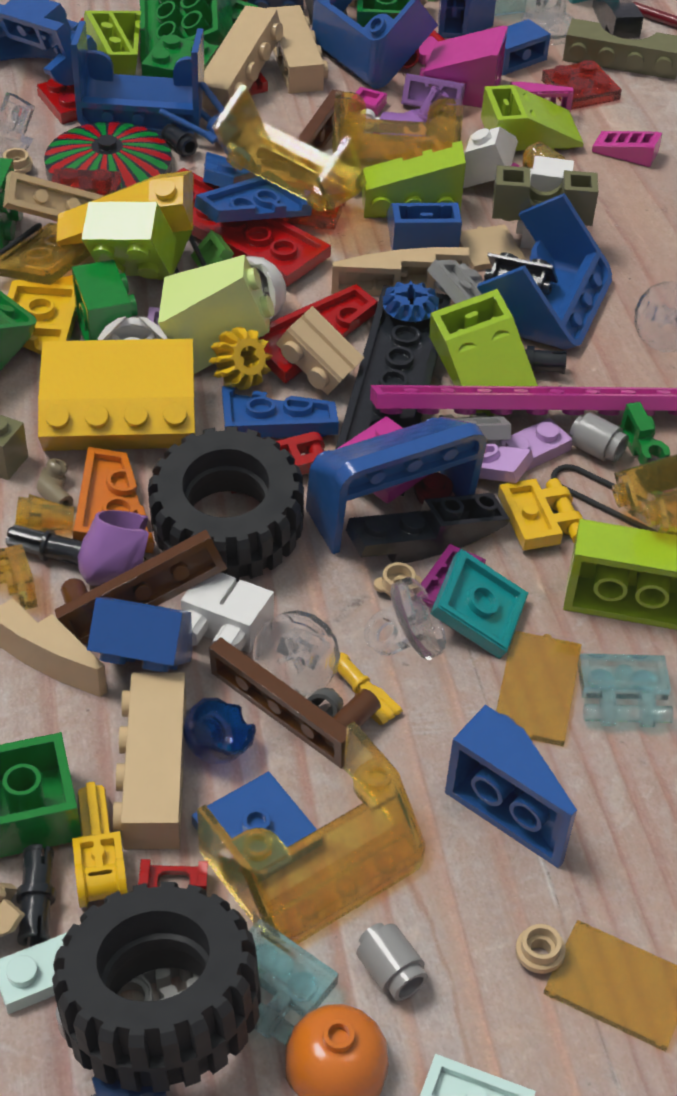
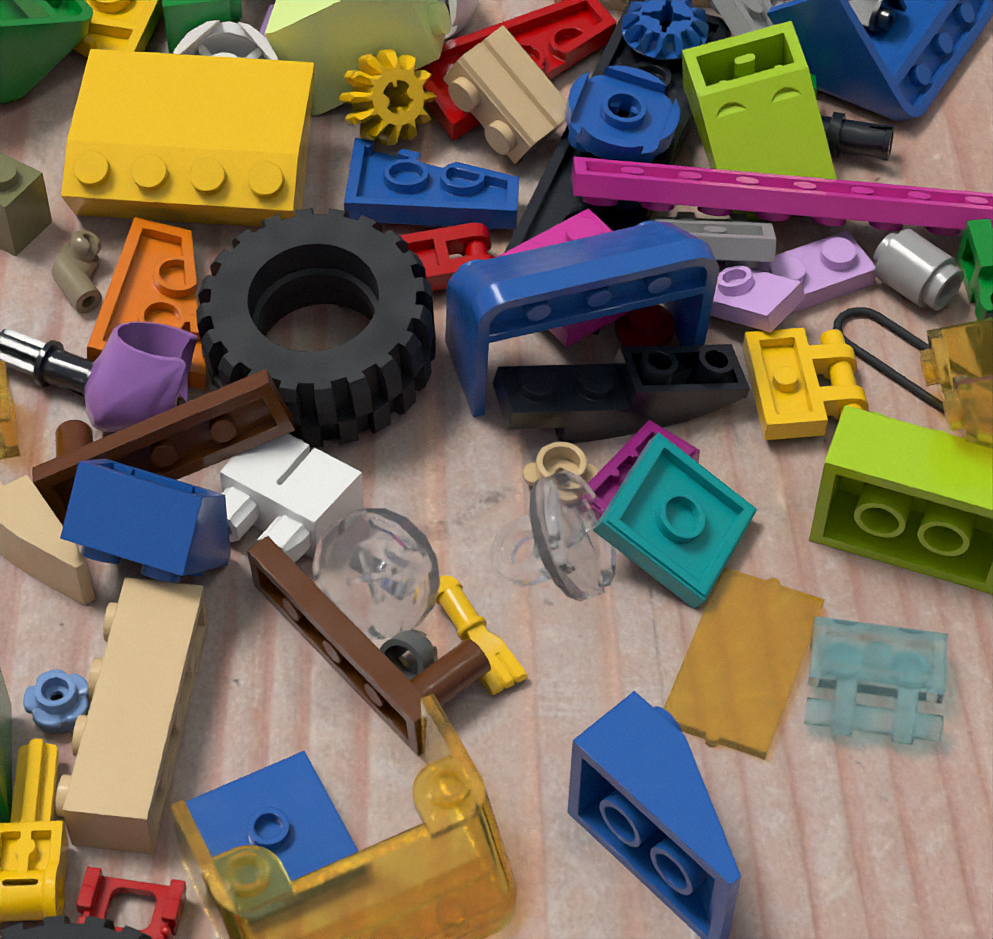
camera: 10 degrees right, 5 degrees up
(43, 514) = (50, 315): clear yellow cone -> none
(100, 766) = (61, 714): none -> medium blue plate
(217, 731) = (237, 680): clear blue hair -> none
(380, 366) = (598, 130): none -> blue plate

